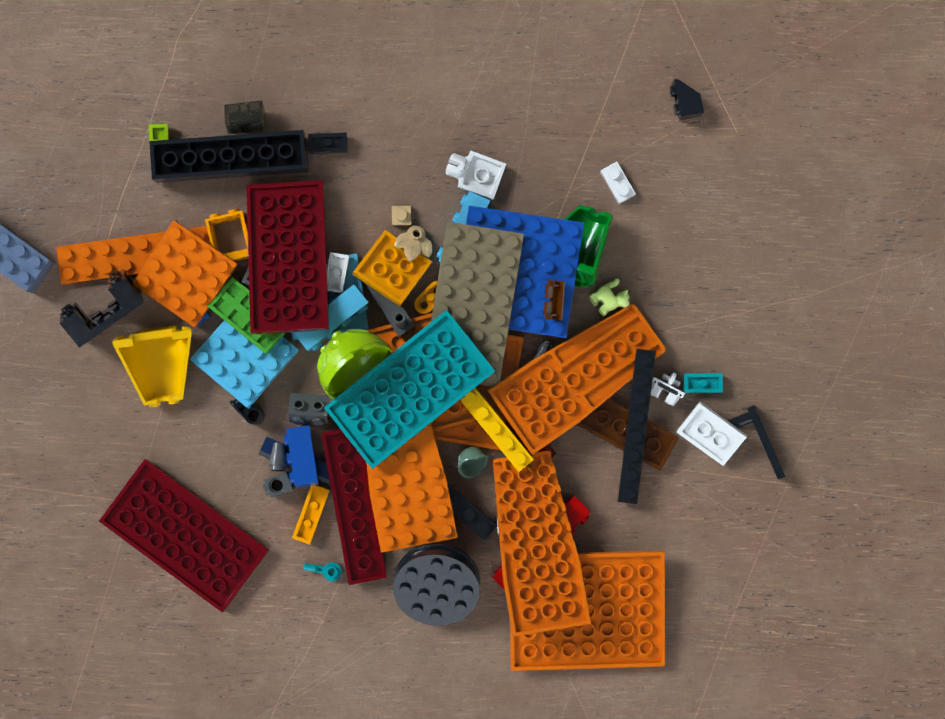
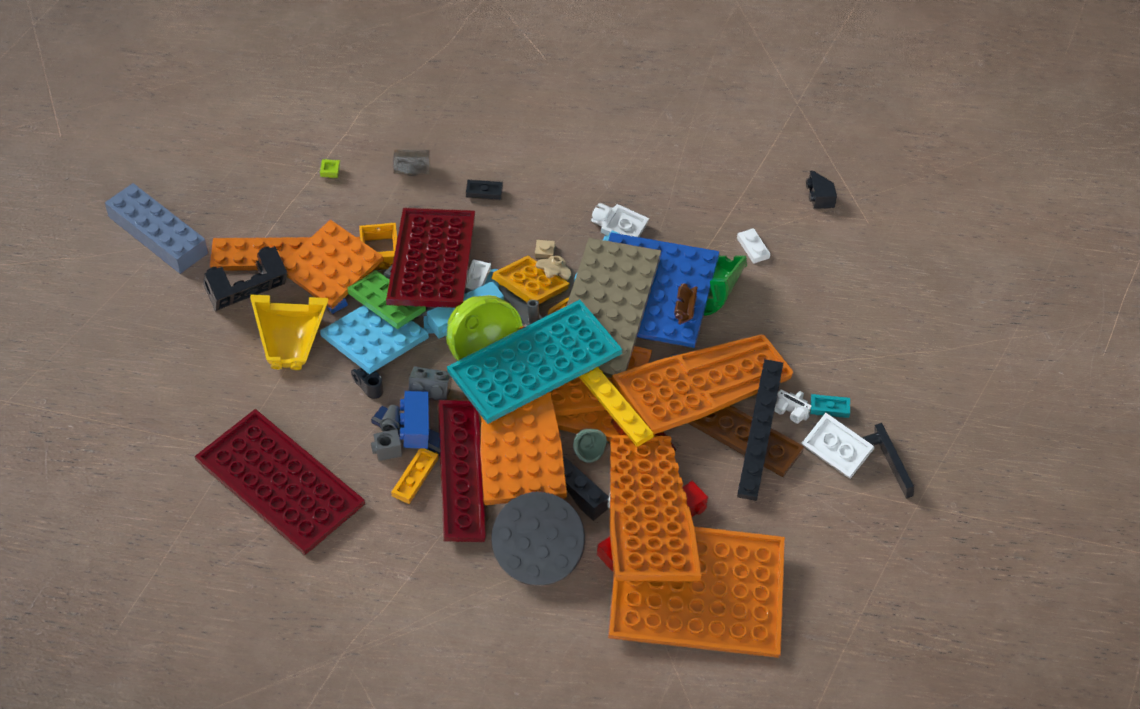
camera: 10 degrees right, 35 degrees down
(228, 156) = (391, 186): black brick -> none
(331, 571) = (426, 529): teal plate -> none
(608, 299) = (737, 329): yellowish green animal -> none

